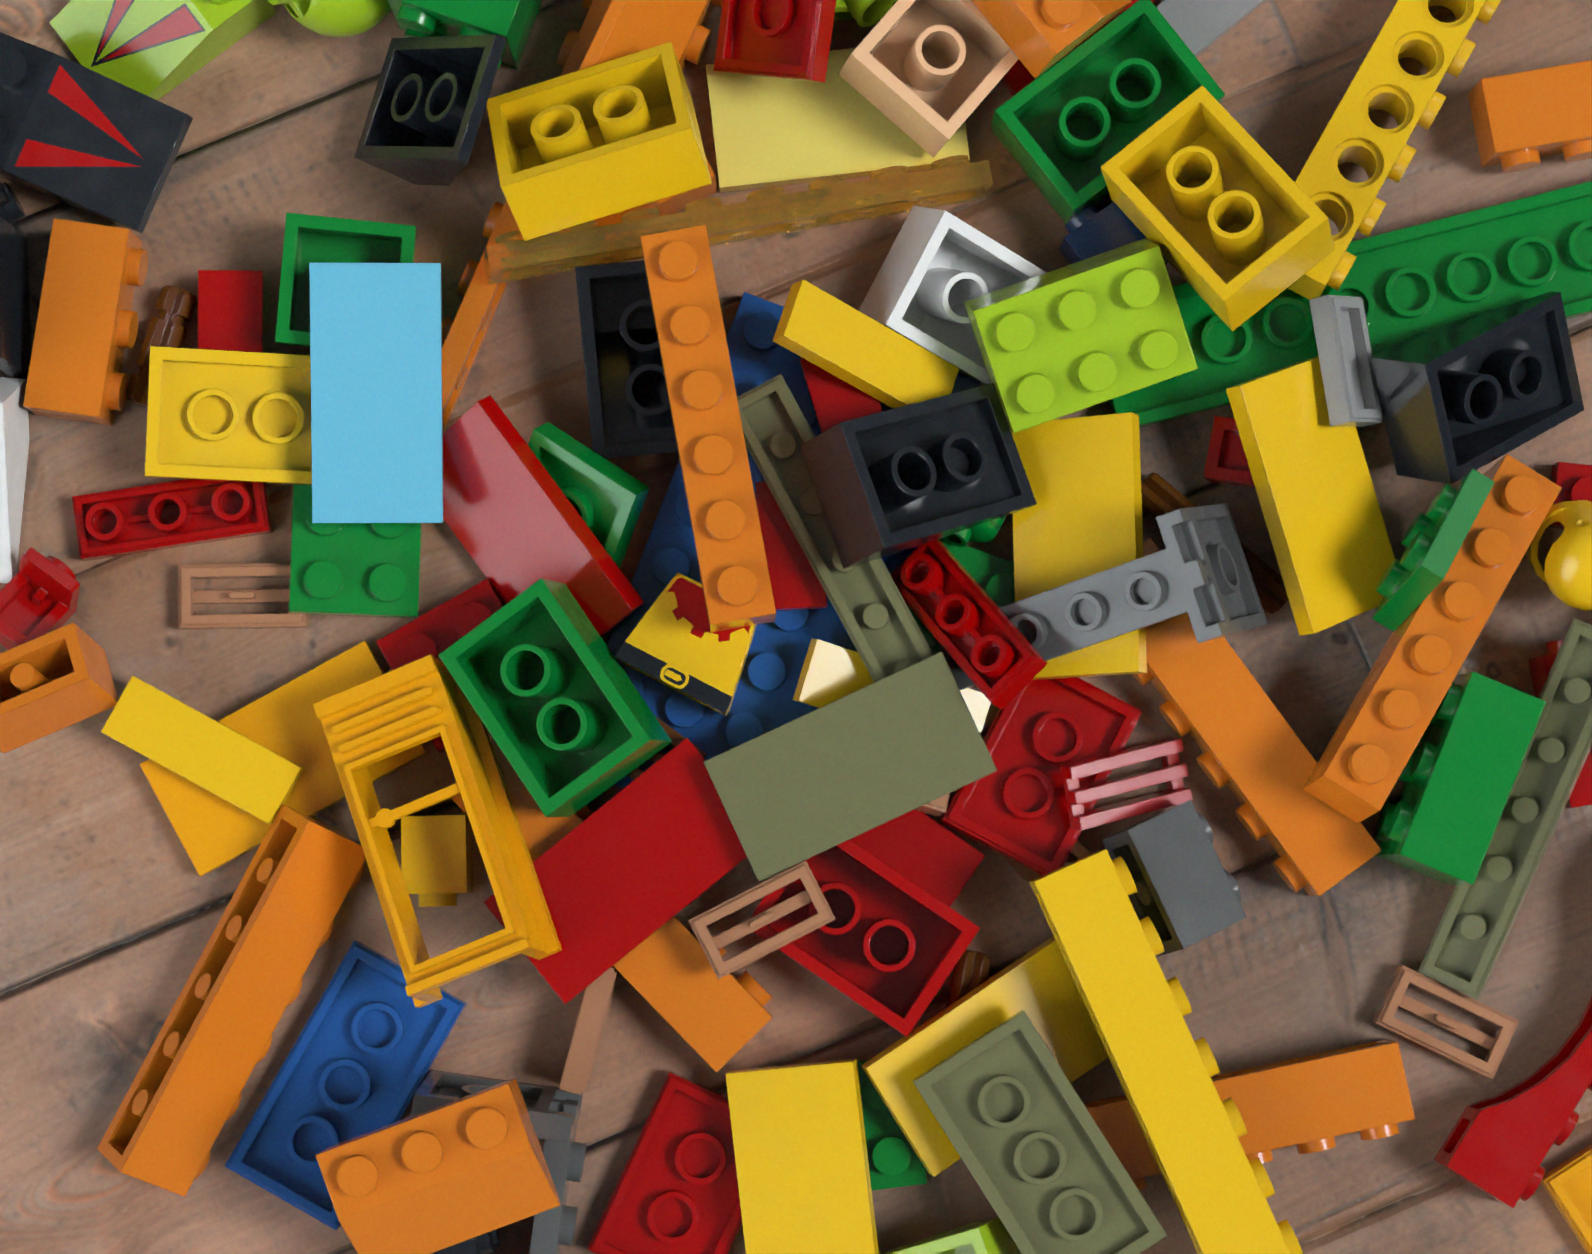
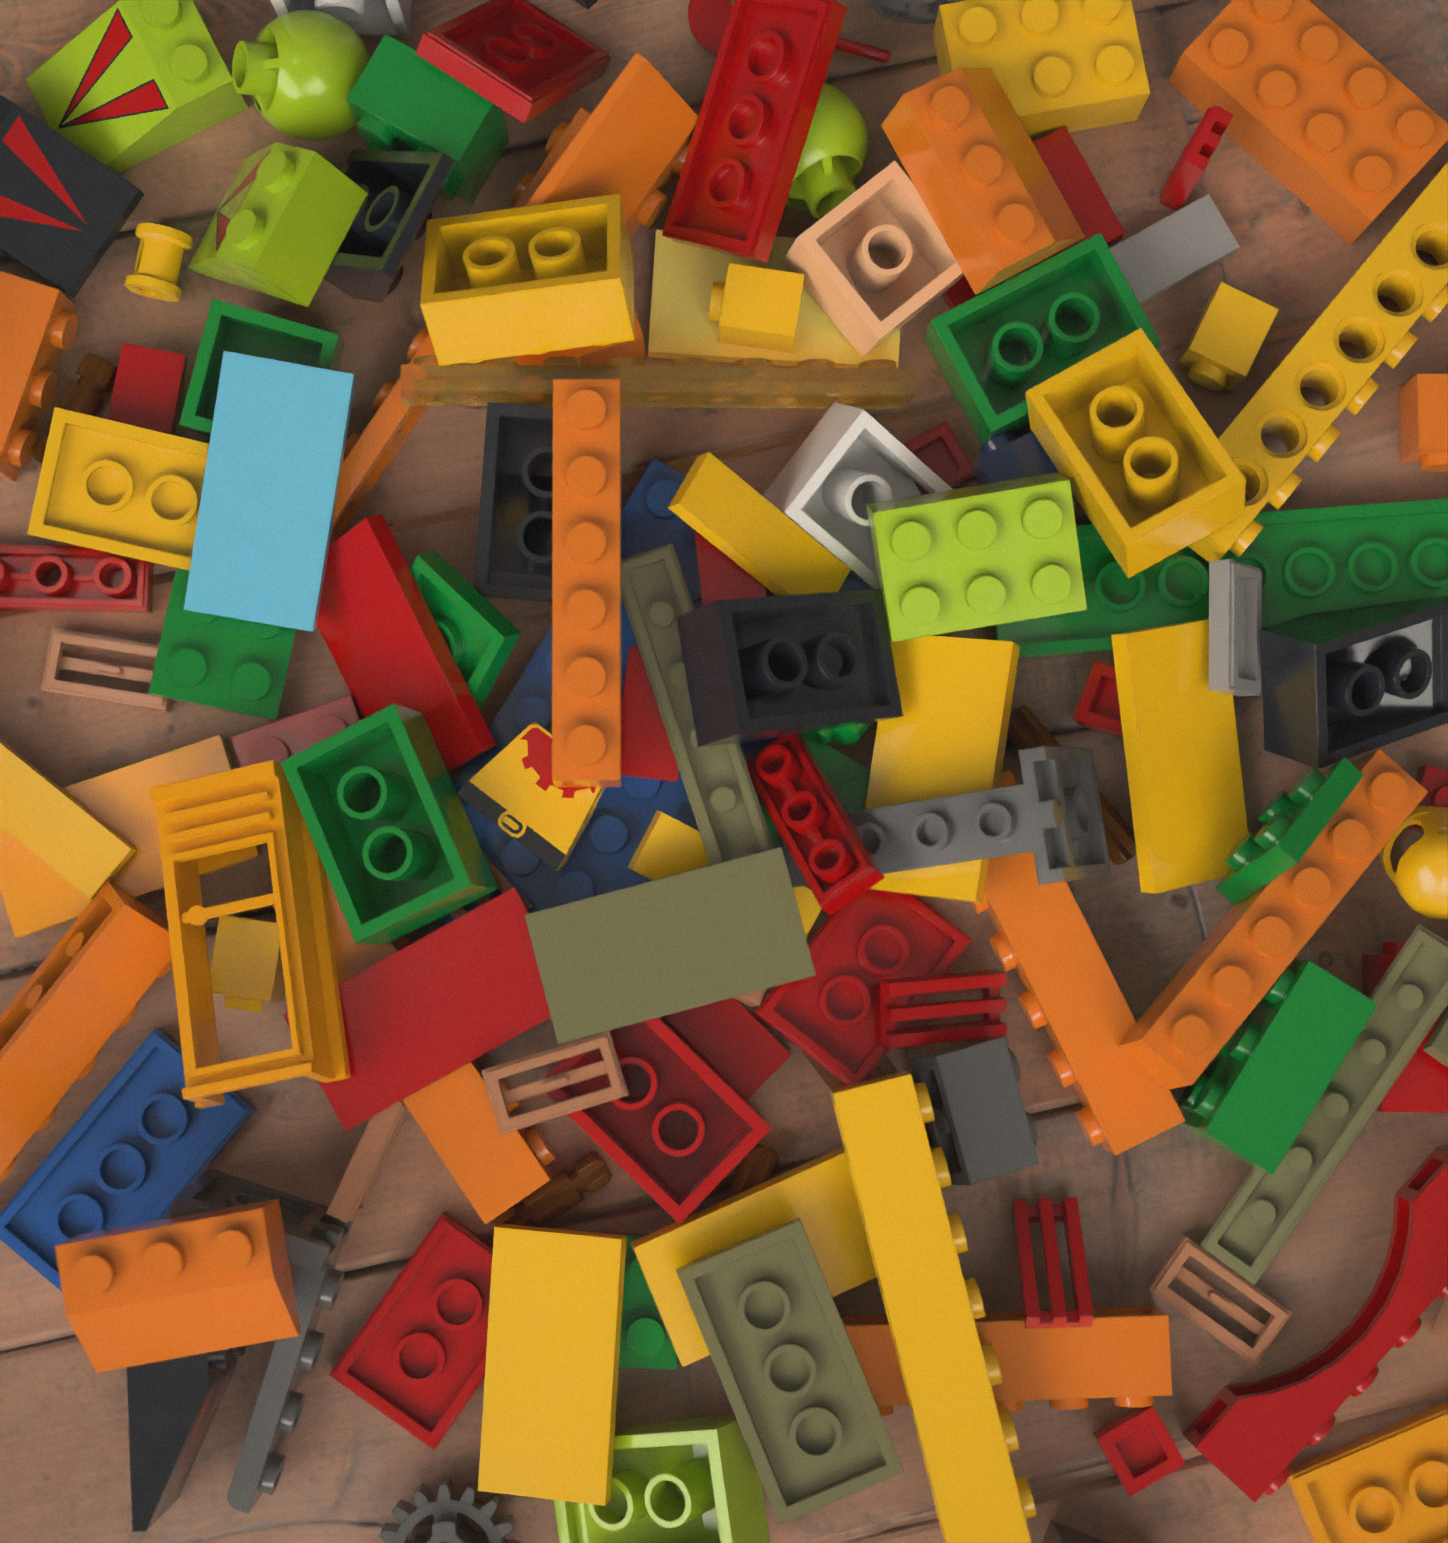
camera: 10 degrees right, 0 degrees up
(218, 183) = (158, 262): none -> yellow bush
(334, 127) = (279, 224): none -> lime slope
(781, 1032) = (559, 1193): none -> reddish brown axle
(822, 126) = (757, 307): none -> yellow brick
(1028, 238) = (943, 455): none -> red tile
(1263, 968) = (1047, 1215): none -> red tile
(1288, 76) = (1226, 338): none -> yellow brick
(1393, 1179) = (1139, 1449): none -> red plate

